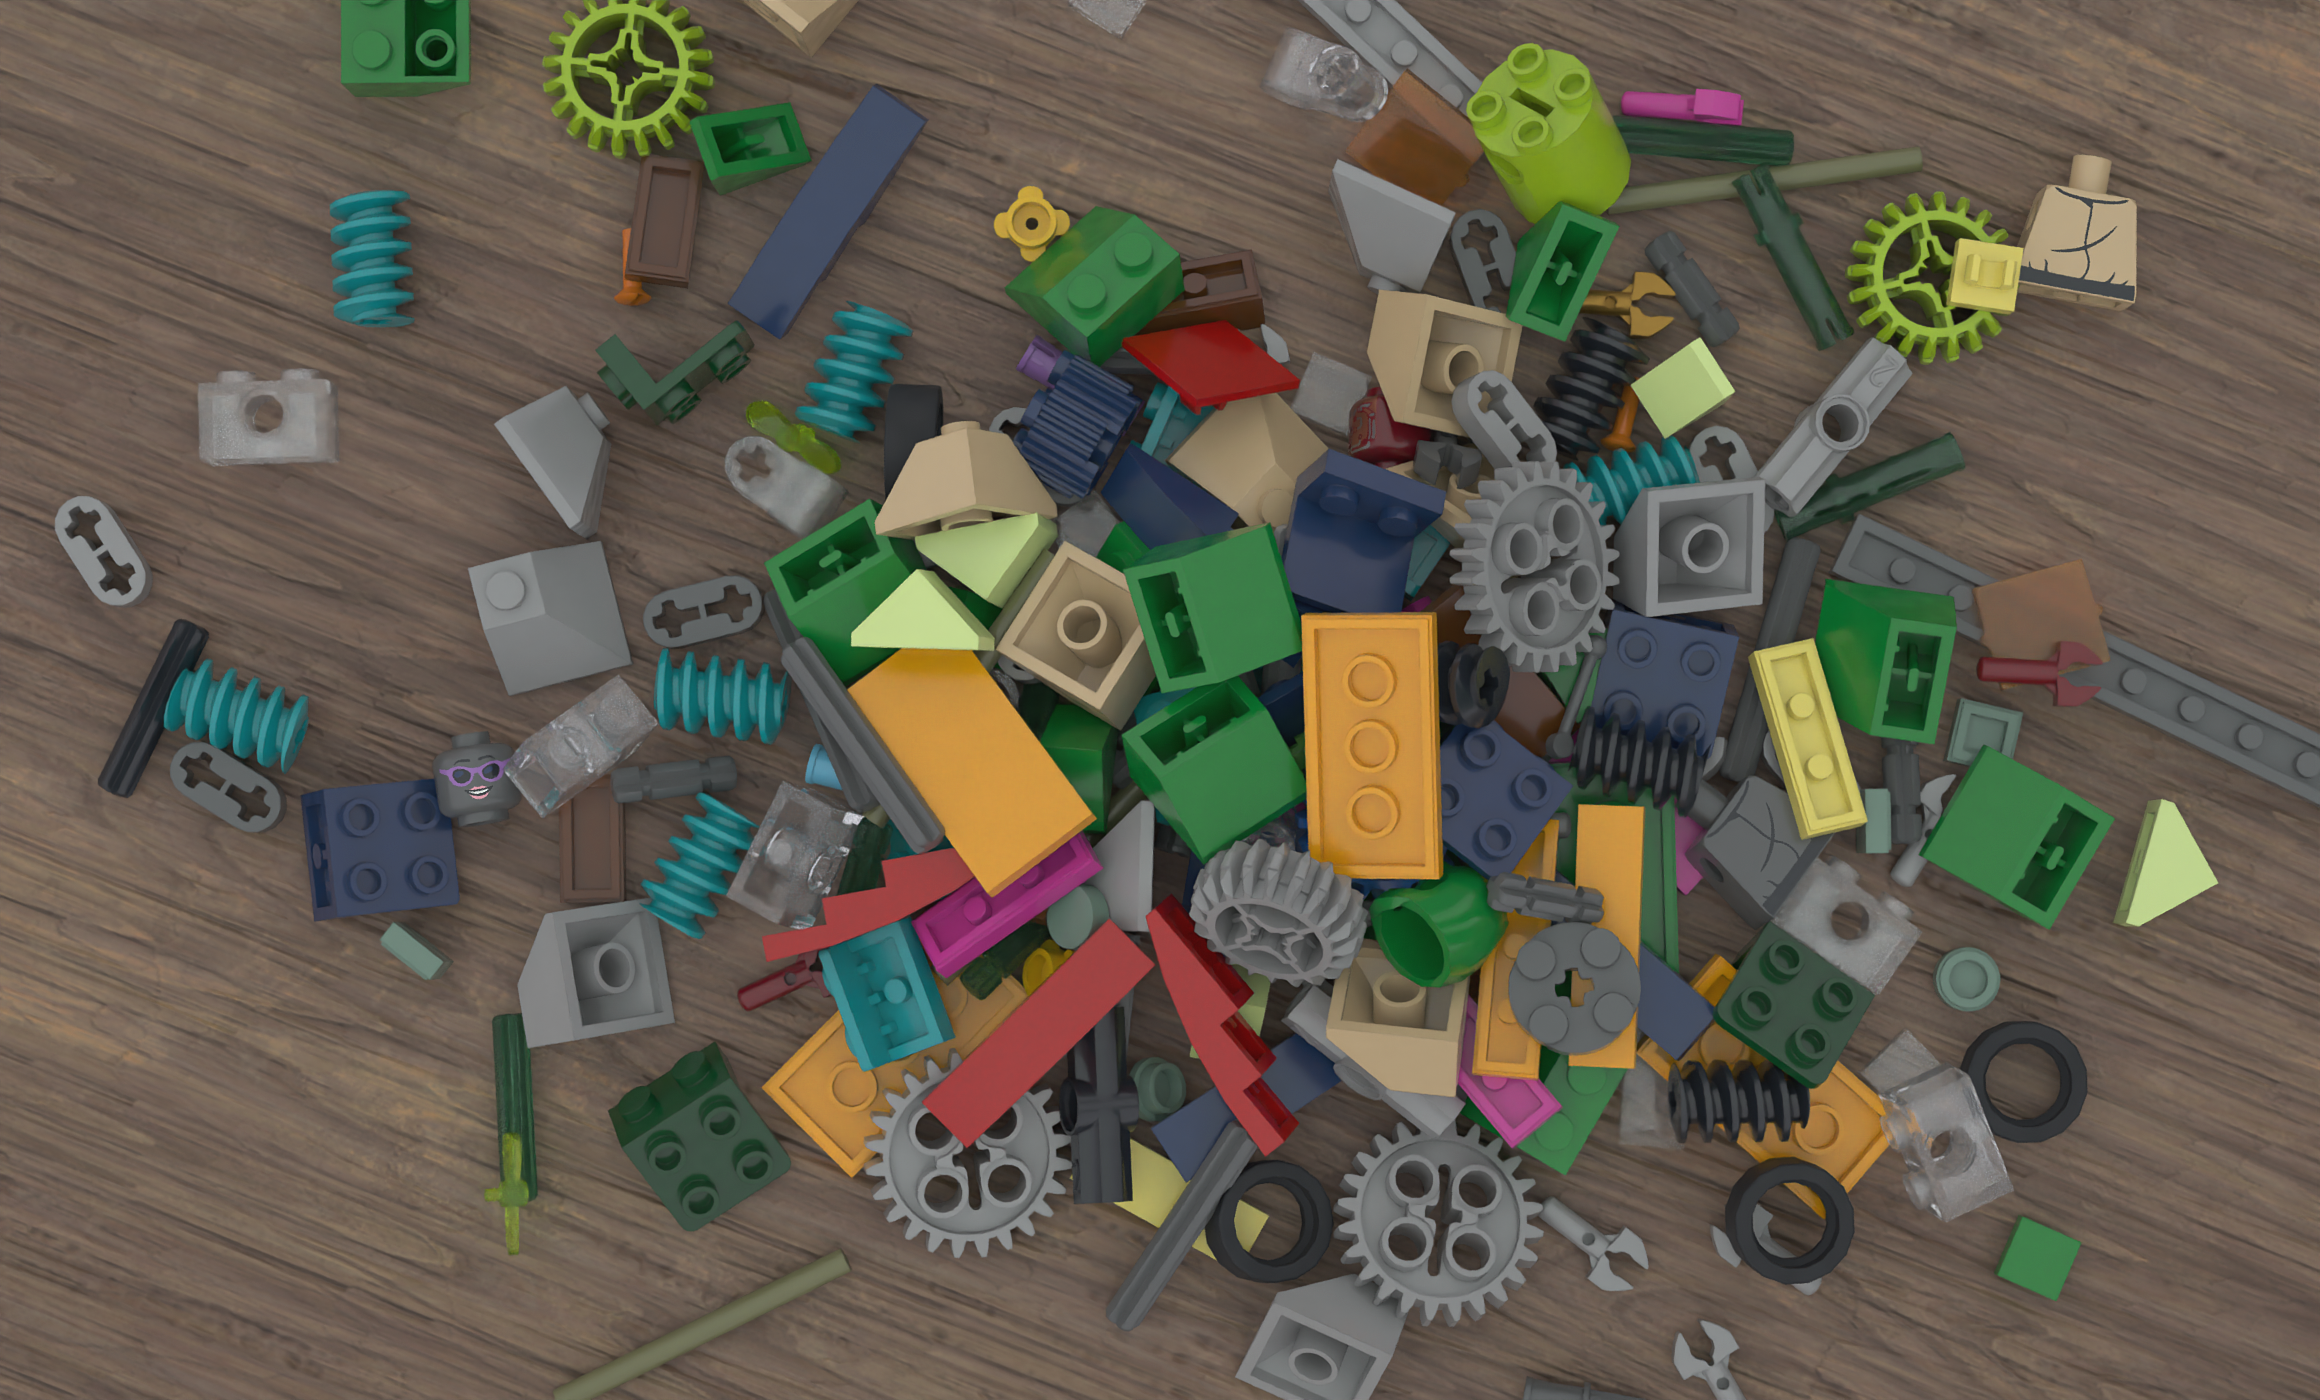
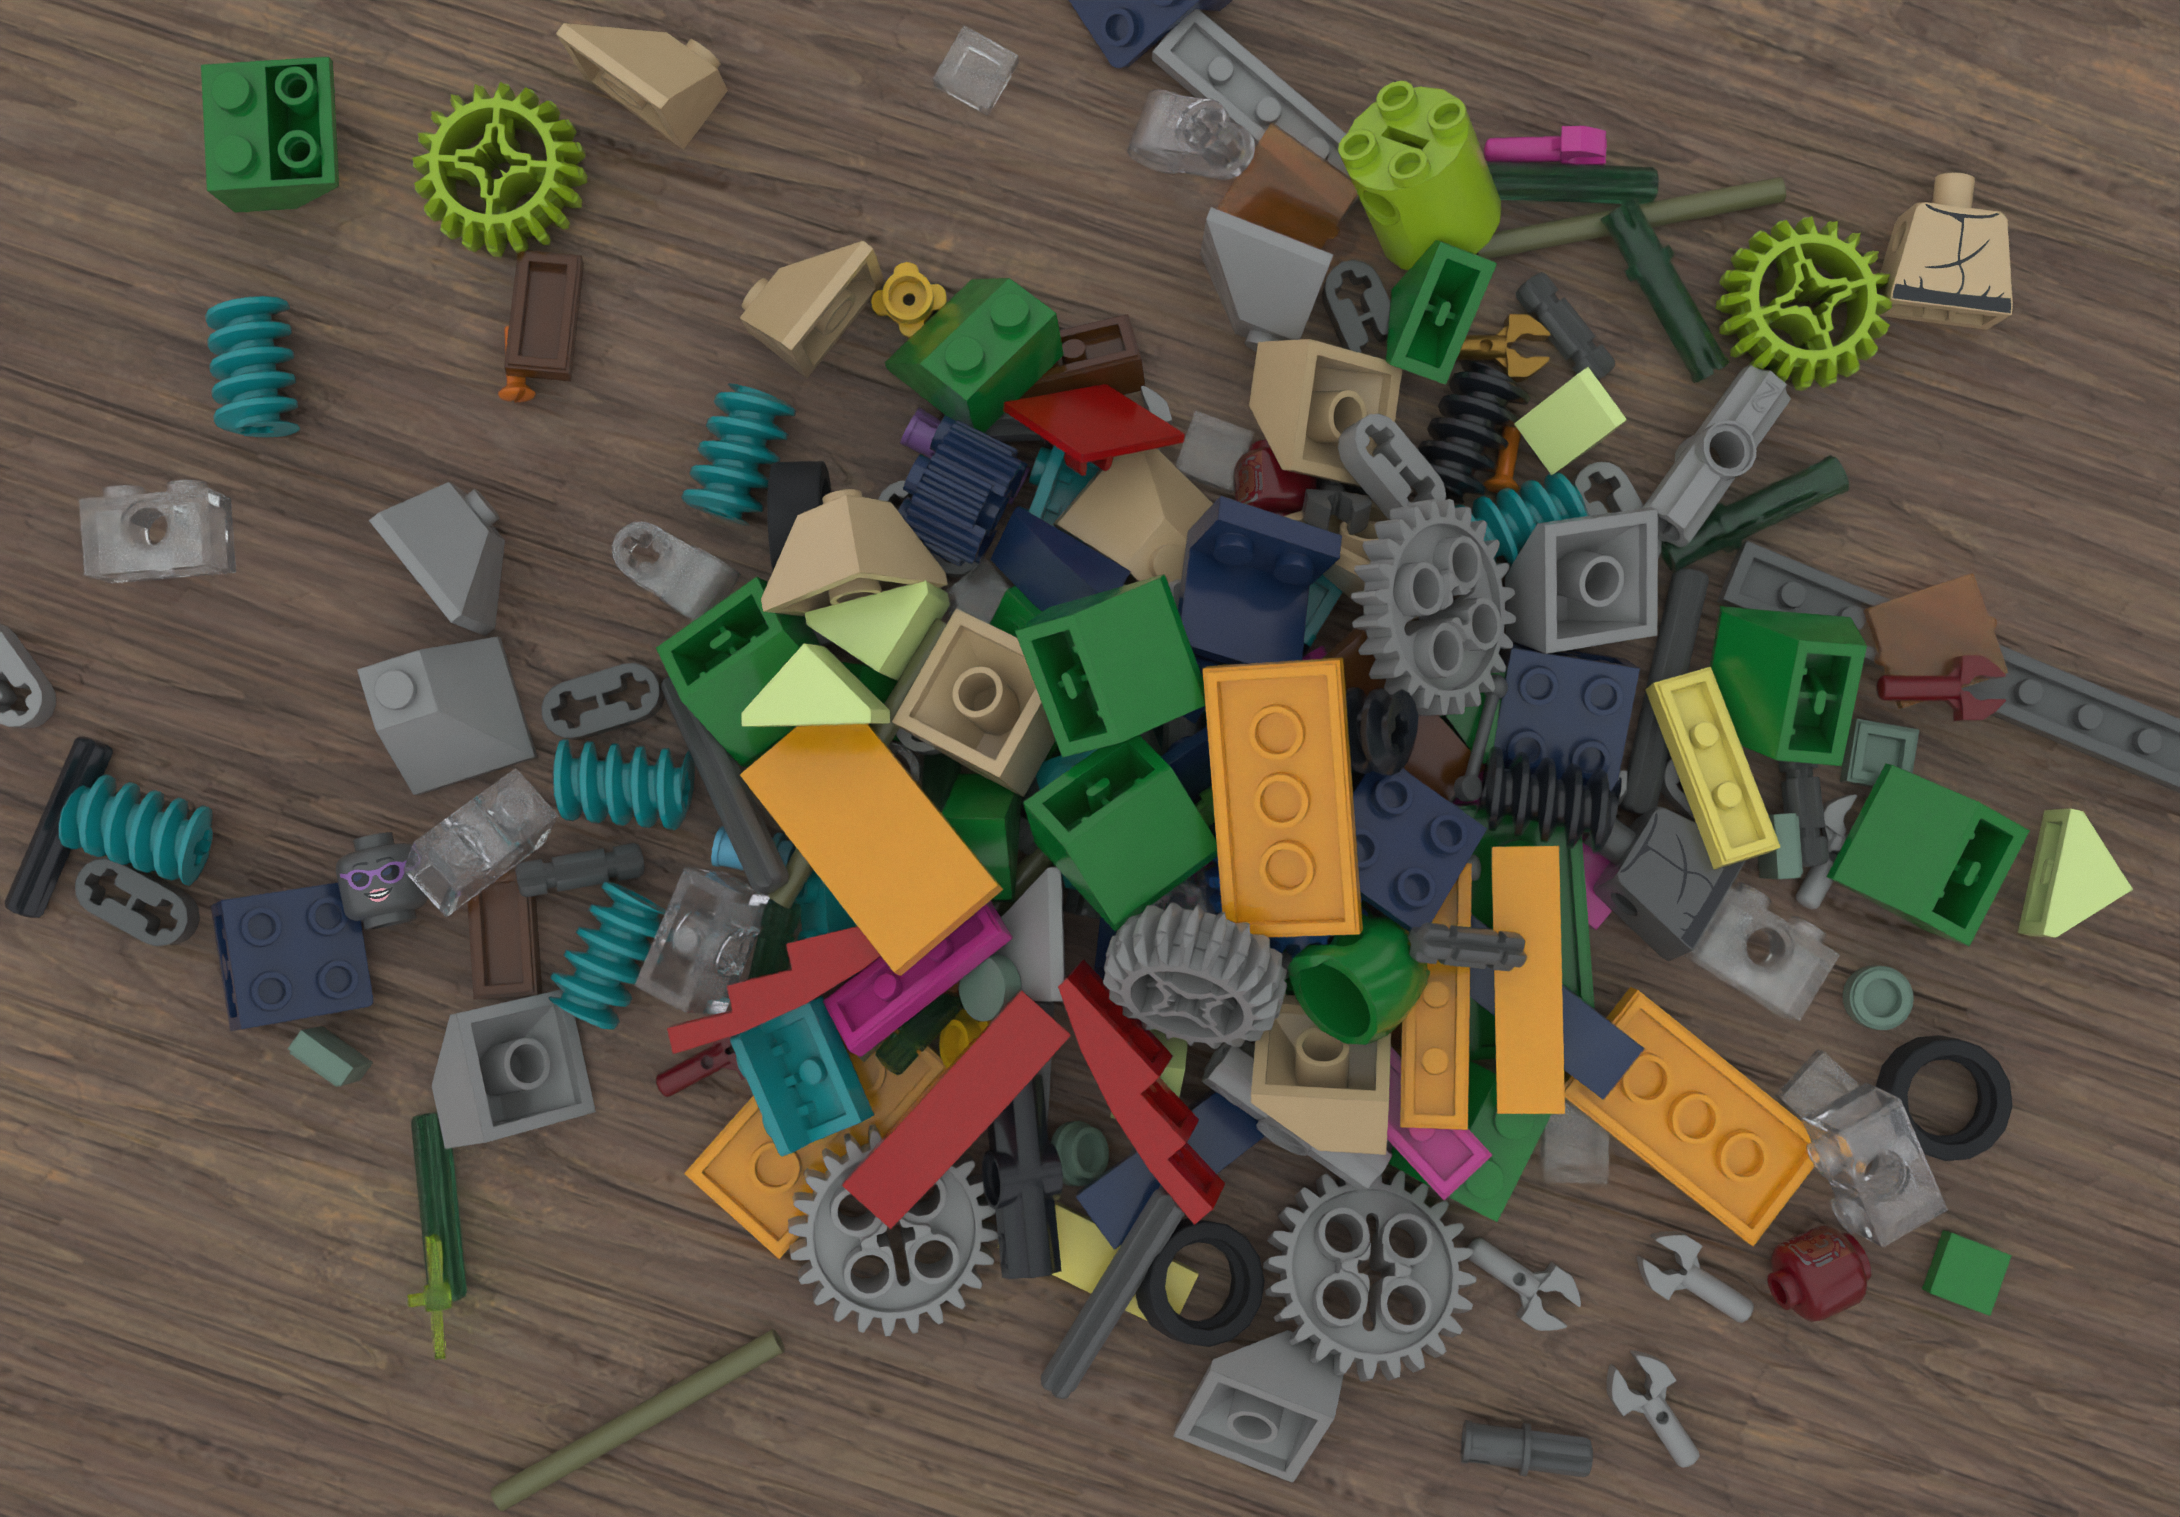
camera: 10 degrees left, 0 degrees up
(677, 392) = (563, 477): dark green bracket -> none
(698, 1138) = (621, 1229): dark green bracket -> none
(749, 145) = (622, 236): green slope -> none
(792, 437) = (682, 522): clear neon green piece -> none
(828, 211) = (705, 296): dark blue slope -> none
(862, 745) = (762, 827): dark grey axle -> none
(932, 226) = (812, 303): none -> tan slope
(1552, 1019) = (1523, 1003): dark grey plate -> none
(1735, 1099) = (1668, 1133): black piece -> none
(1791, 1005) = (1715, 1037): dark green bracket -> none
(1828, 1250) = (1760, 1283): black tyre -> none
(1889, 1249) = (1819, 1273): none -> dark red head
(1984, 276) = (1863, 295): light yellow tile -> none

